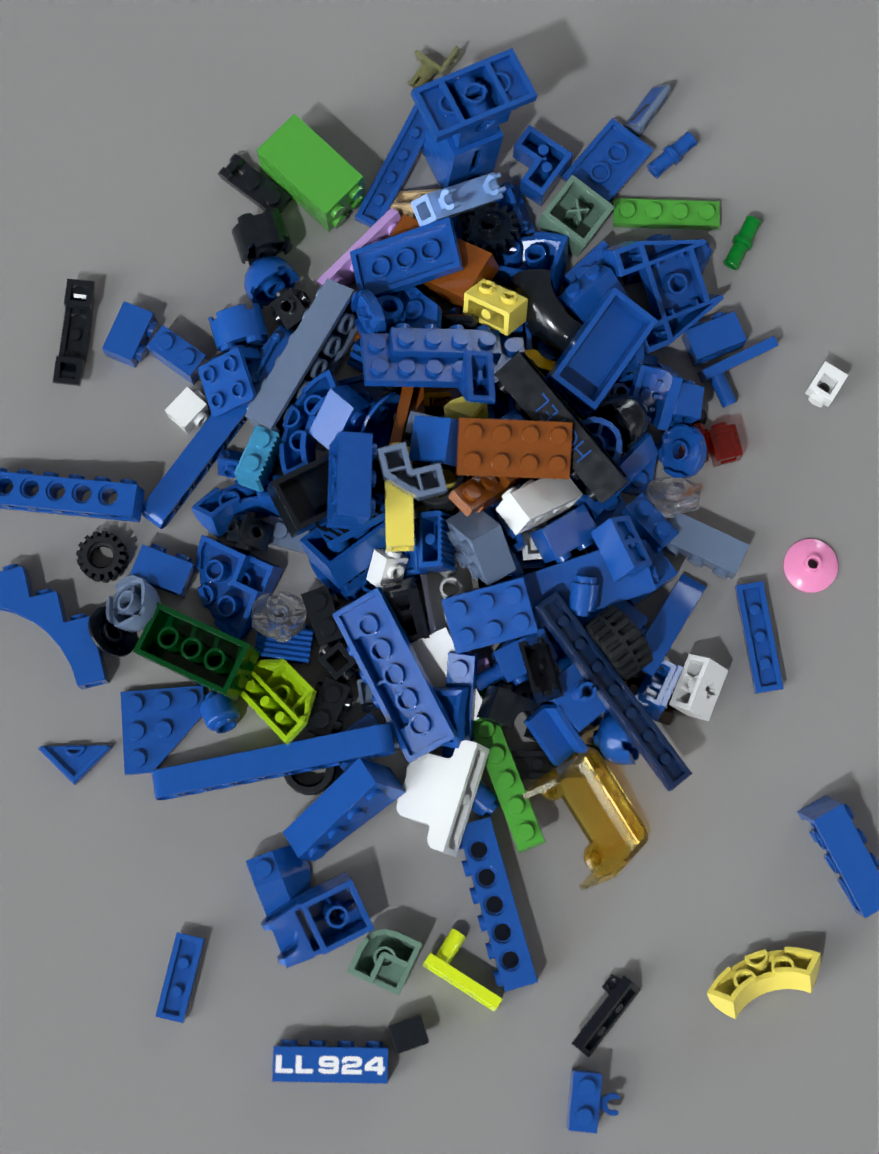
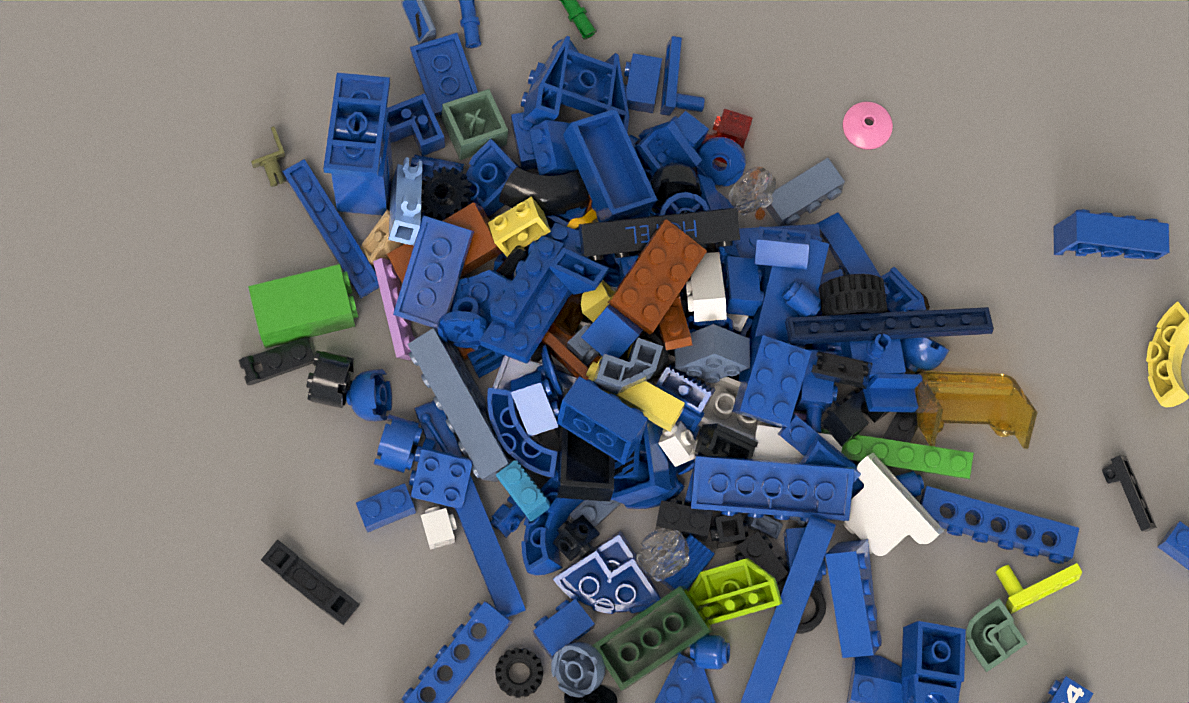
camera: 65 degrees left, 5 degrees down
(130, 334) = (341, 537): blue brick -> none
(290, 307) = (416, 394): black brick -> none
(408, 1034) = (1061, 655): black panel -> none
(650, 522) = (768, 216): blue plate -> none
(666, 214) = (515, 56): bright green plate -> none
(698, 687) = (917, 264): white brick -> none
(759, 637) = (902, 197): blue plate -> none
(829, 377) = (733, 17): white brick -> none

